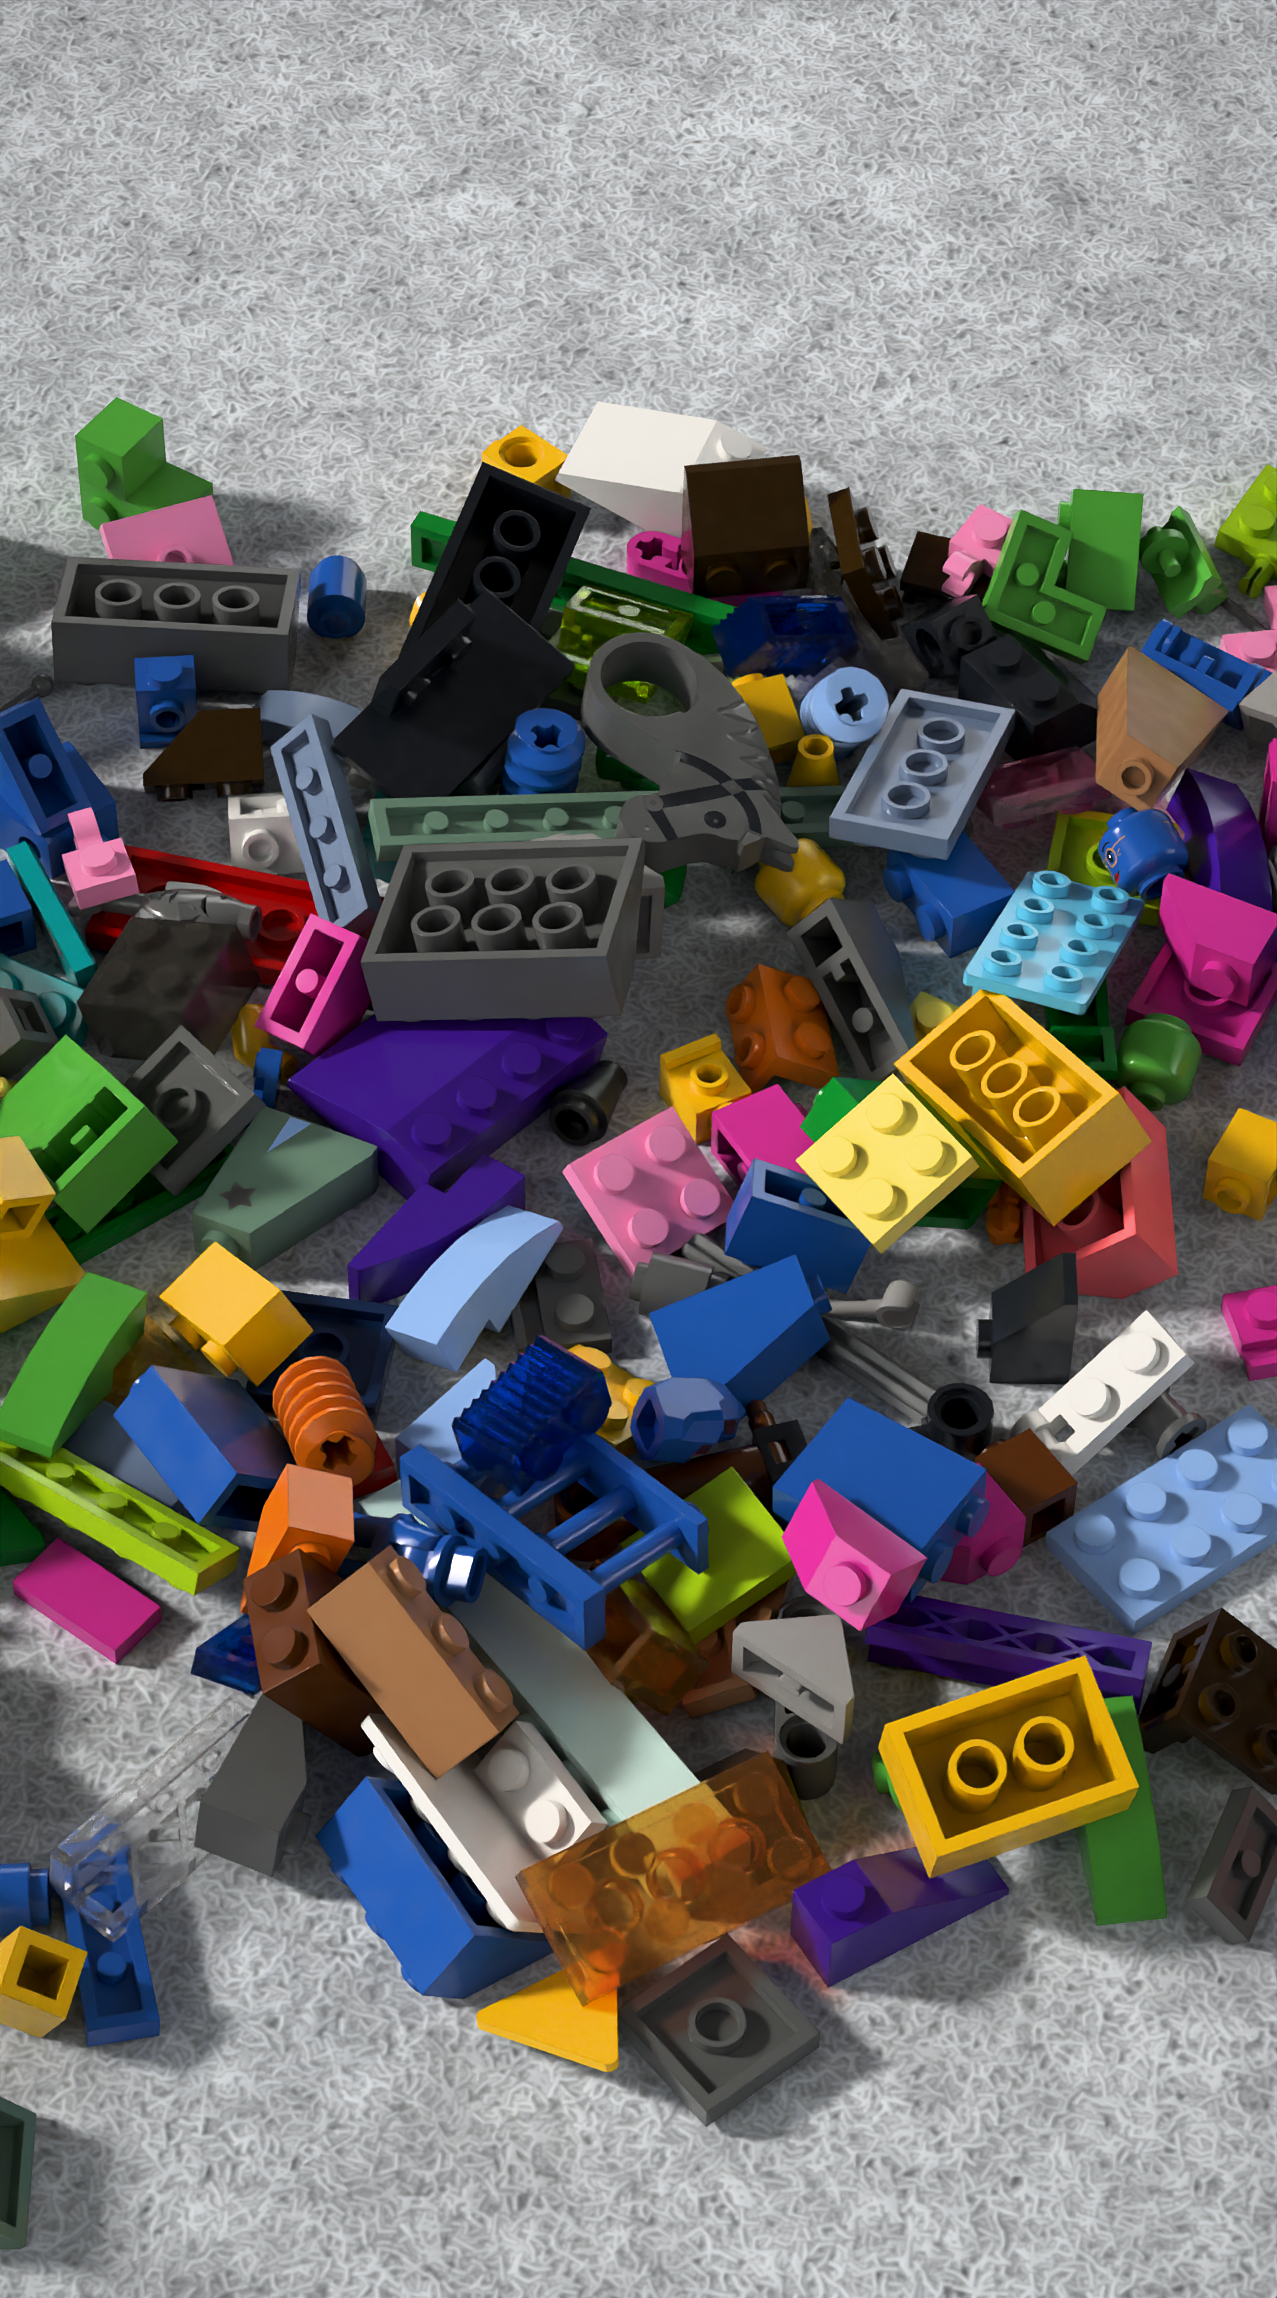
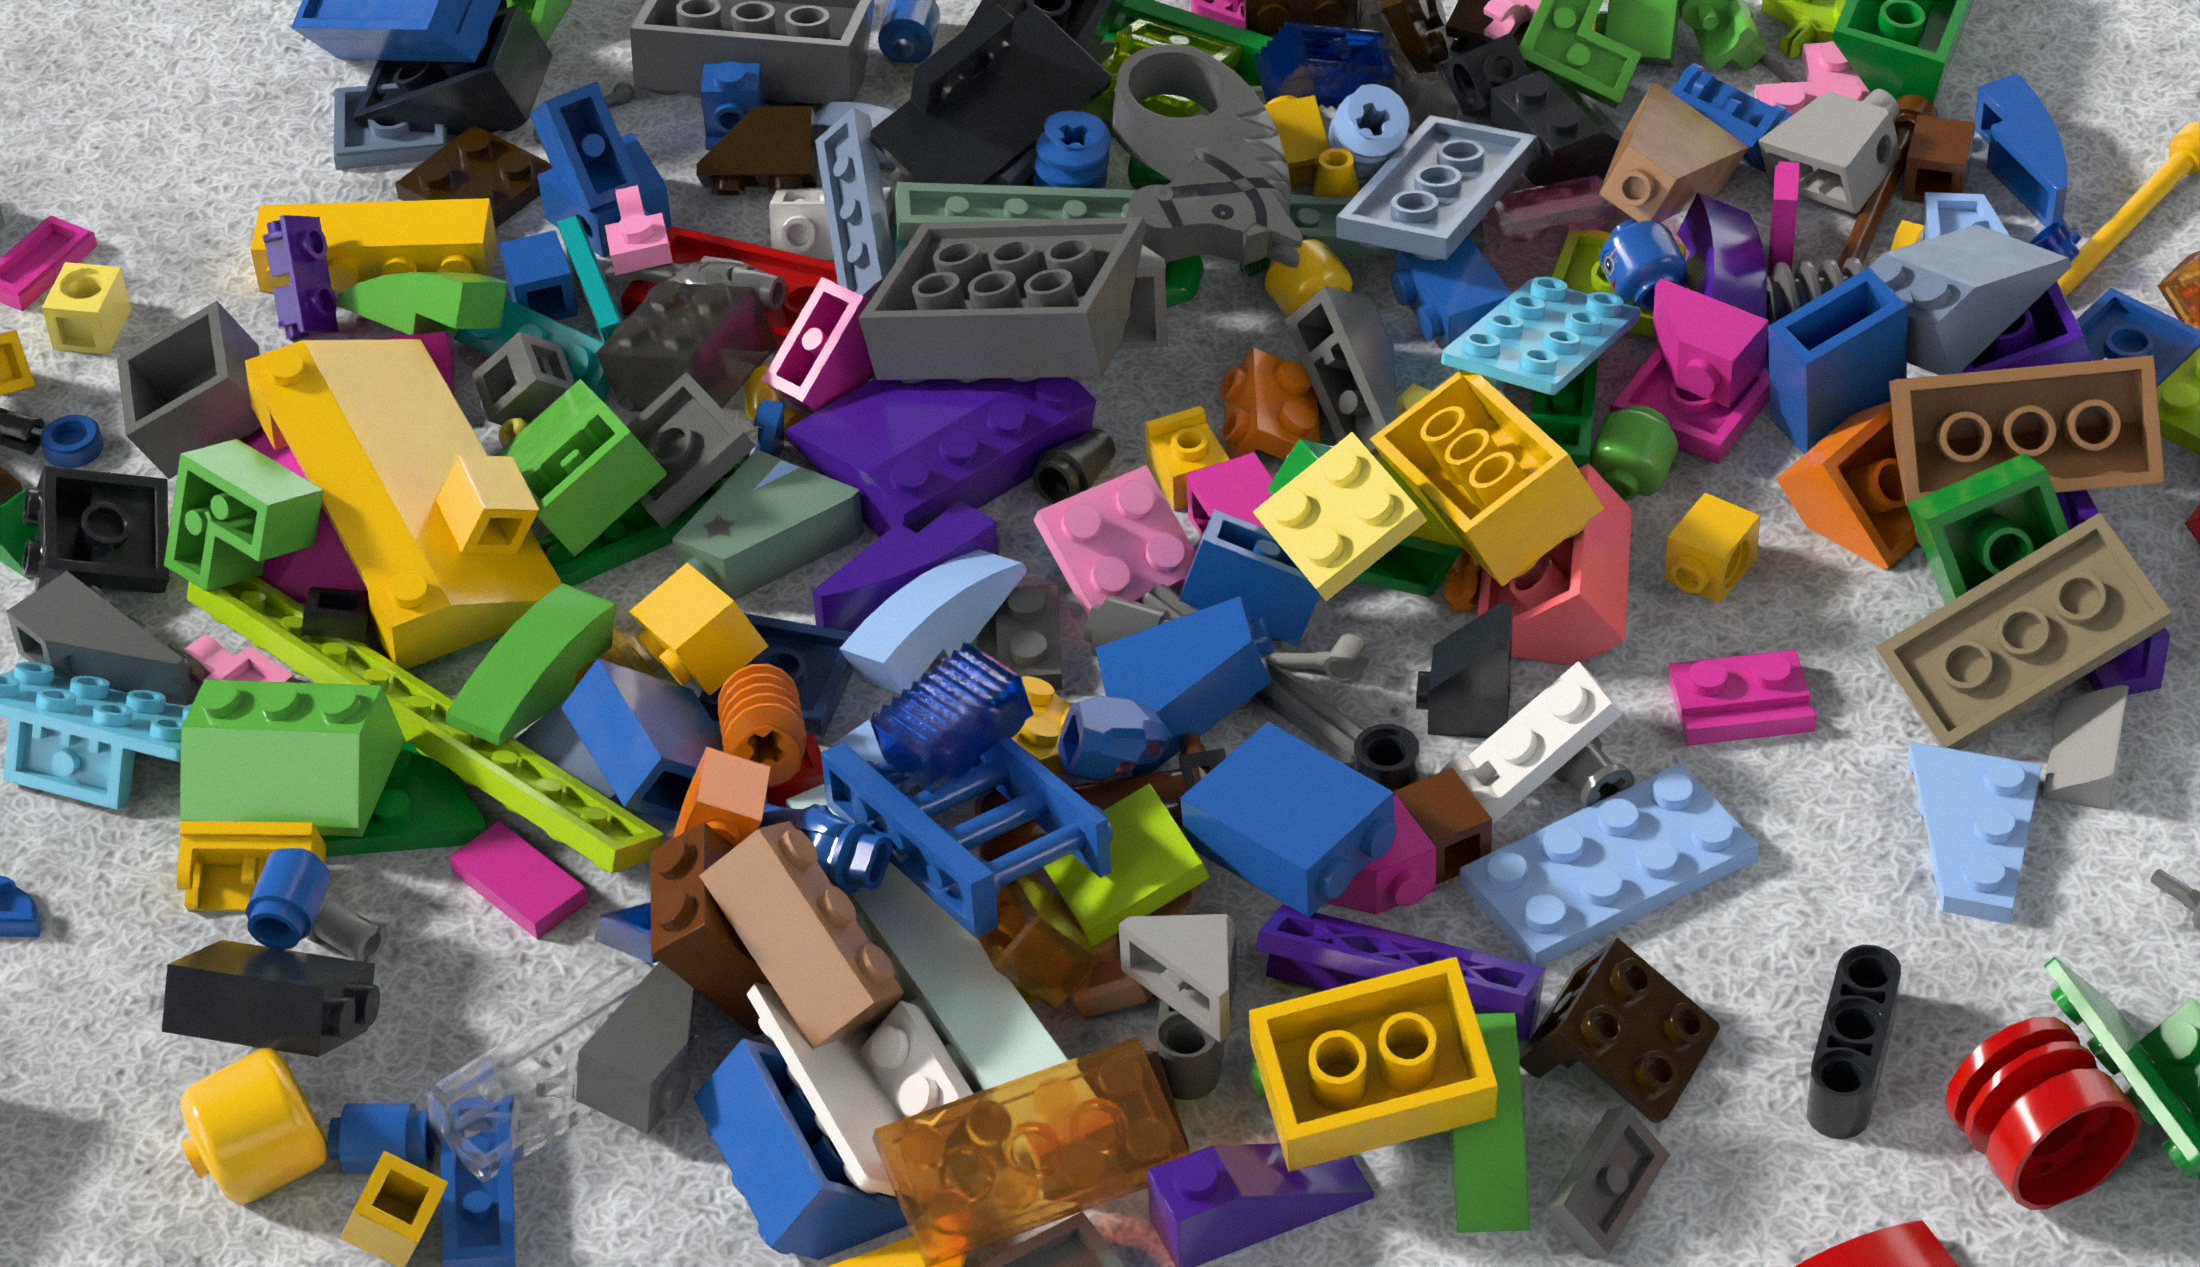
camera: 10 degrees right, 5 degrees down
(849, 1558) = (1246, 865): dark pink slope -> none

